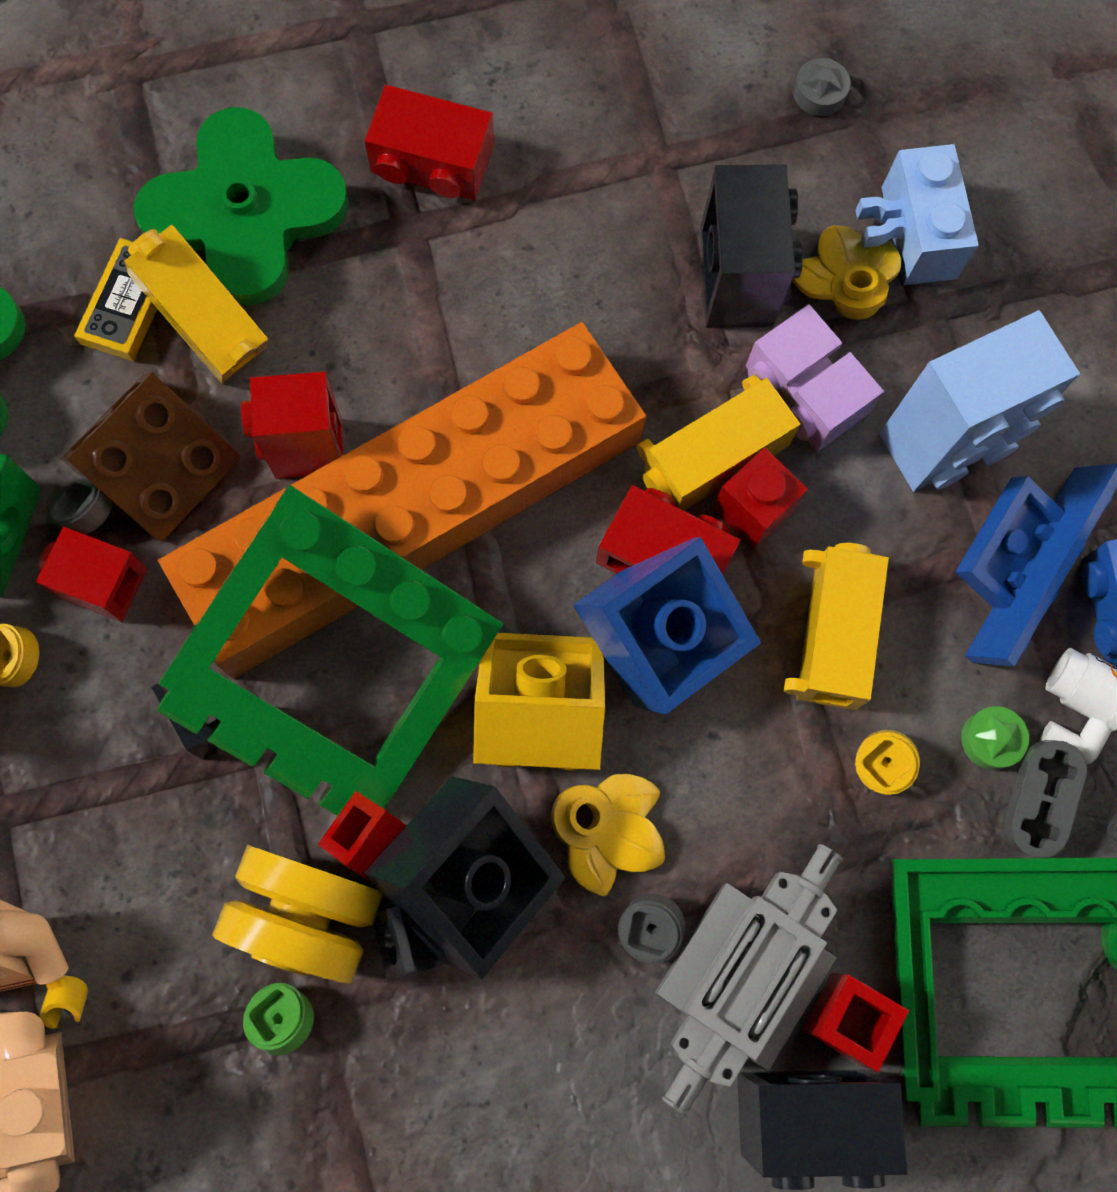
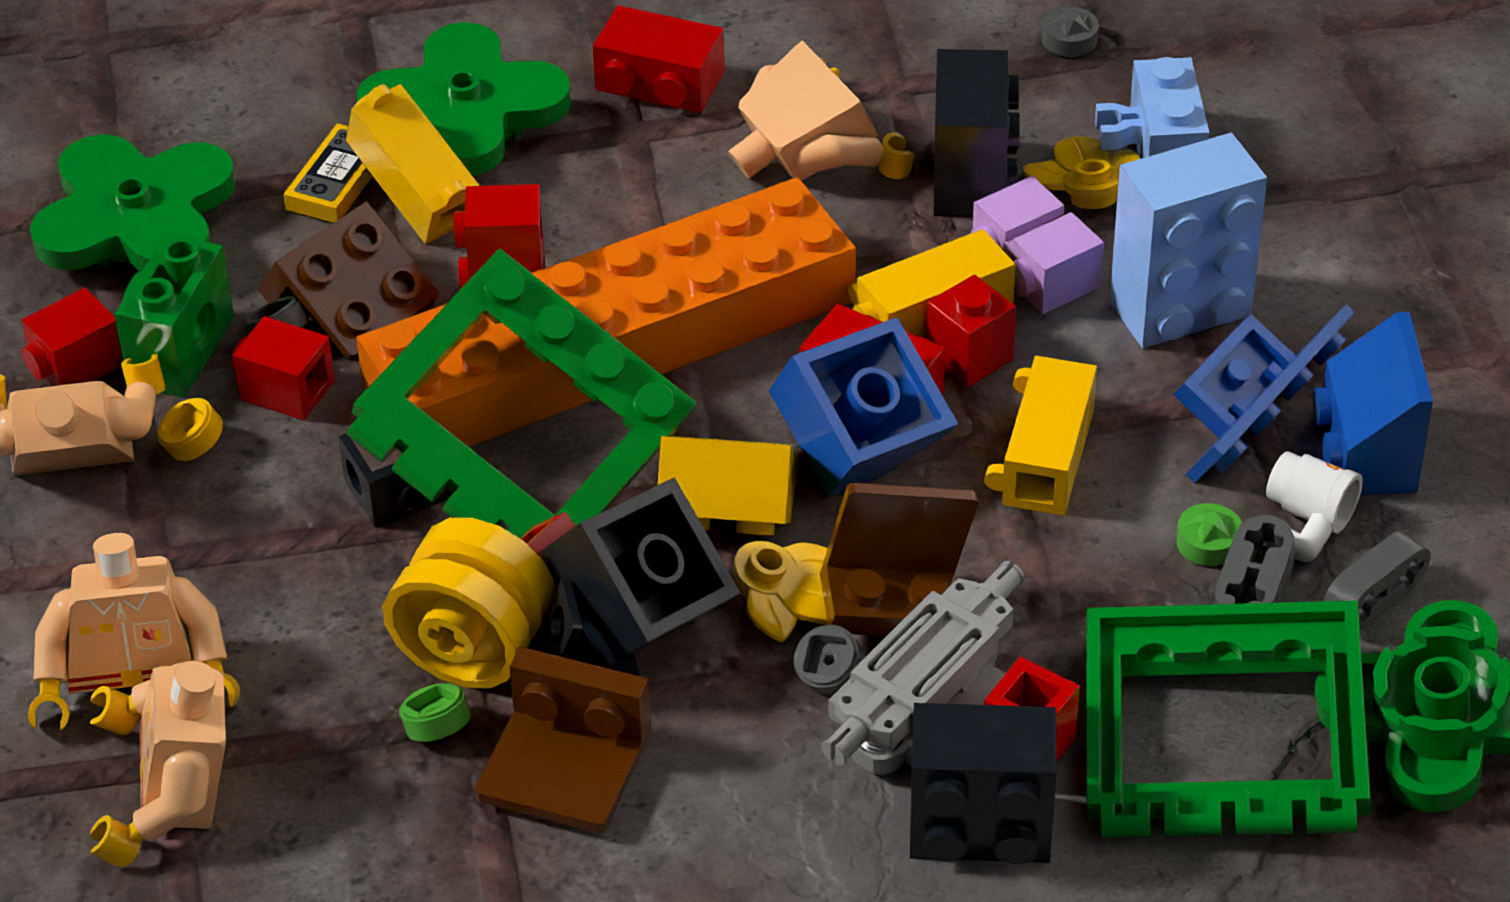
camera: 10 degrees right, 30 degrees down
(406, 1072) = (567, 741): none -> reddish brown bracket
(584, 227) = (812, 123): none -> light nougat torso
(710, 834) = (892, 552): none -> reddish brown bracket
(887, 762) = (1090, 543): yellow tile -> none

